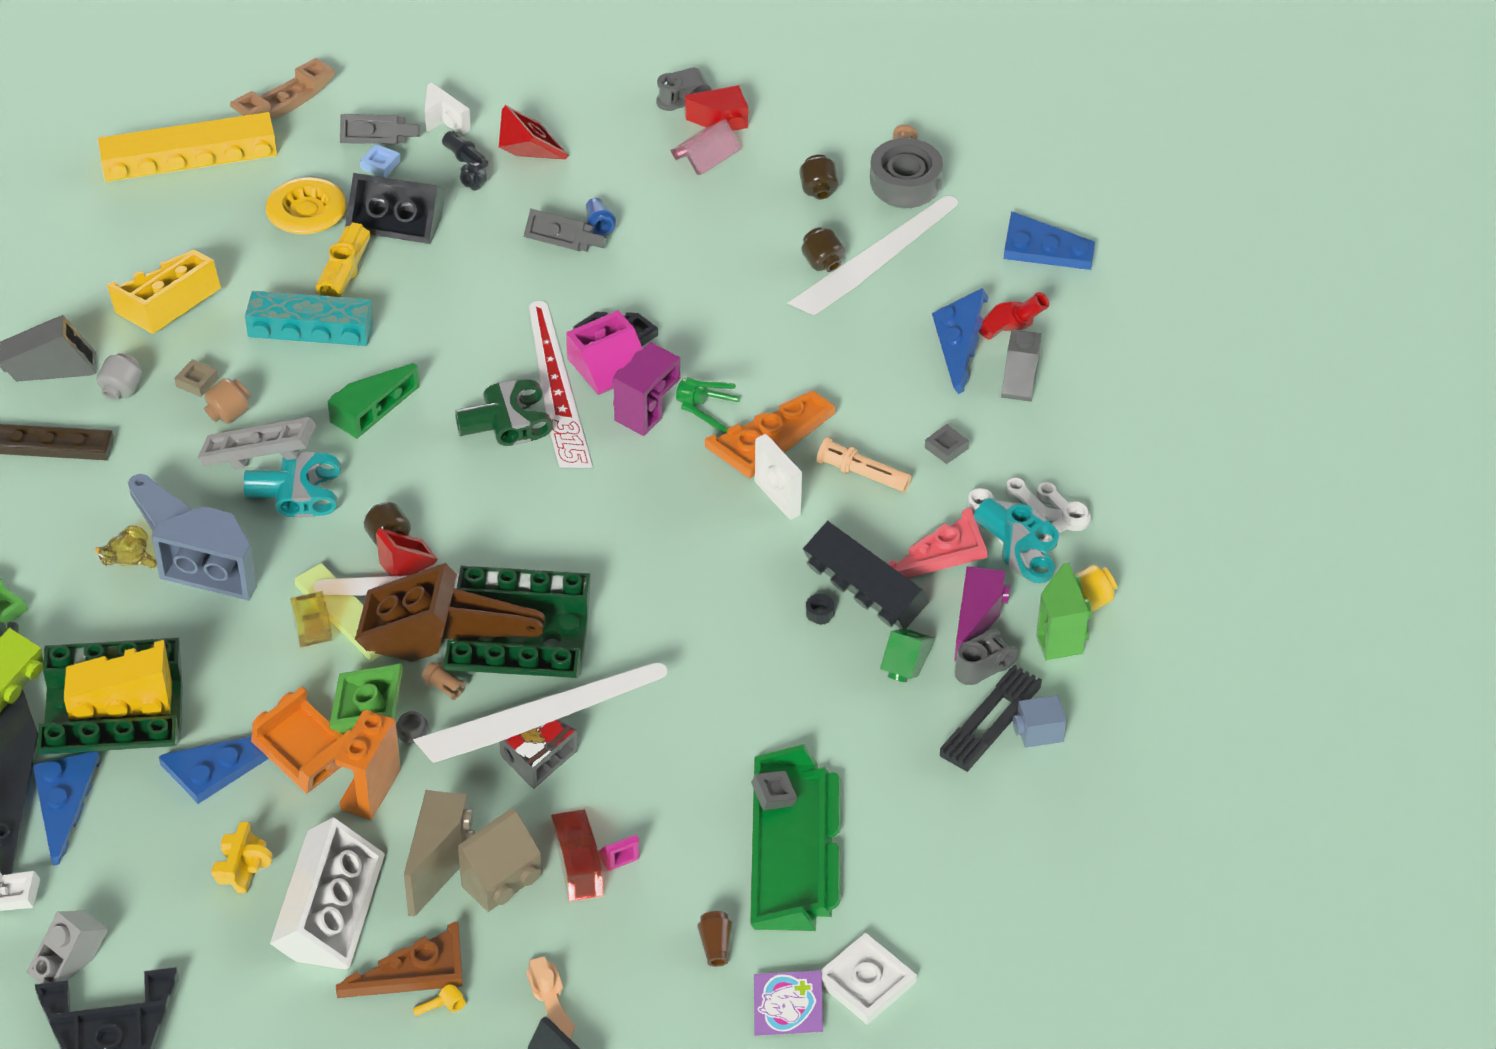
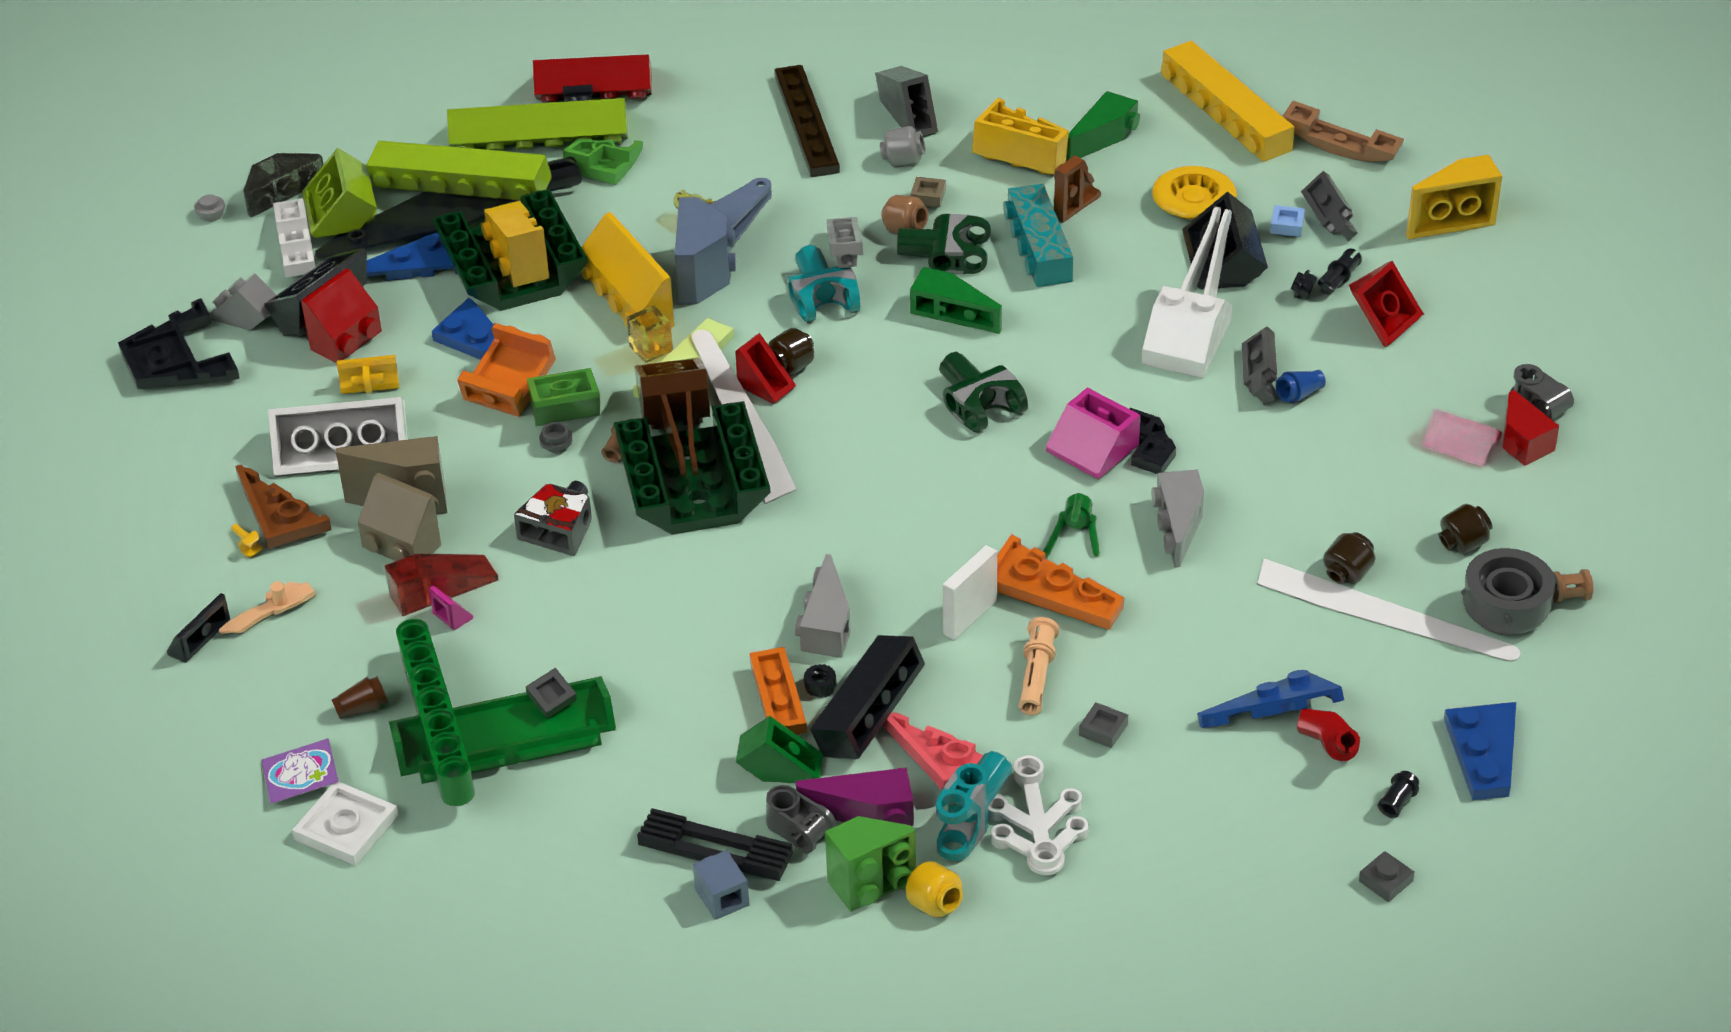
camera: 75 degrees right, 5 degrees down
(100, 867) = (287, 306): none -> black slope
(153, 861) = (340, 317): none -> red slope
(166, 227) = (1103, 125): none -> green slope
(219, 613) = (625, 271): none -> yellow slope
(267, 270) = (1073, 188): none -> dark orange wing
(283, 384) = (947, 243): none -> dark green connector
(343, 261) = (1127, 233): yellow piece -> none
(374, 758) = (476, 407): orange panel -> none
(425, 42) = (1455, 198): none -> yellow slope
(444, 108) = (1384, 236): white slope -> none
(487, 255) = (1189, 325): none -> white slope
(528, 716) = (581, 499): white sticker -> none
(557, 394) = (1027, 429): sticker -> none
(642, 386) = (1043, 460): magenta brick -> none
(722, 329) = (1180, 509): none -> light grey slope
(743, 579) = (826, 618): none -> light grey slope
(787, 874) = (435, 713): none -> green beam
(828, 637) = (778, 688): none -> orange plate
(1021, 365) = (1258, 760): slope -> none
(1074, 297) = (1403, 787): none -> black pin
(1155, 335) = (1386, 876): none -> dark grey plate

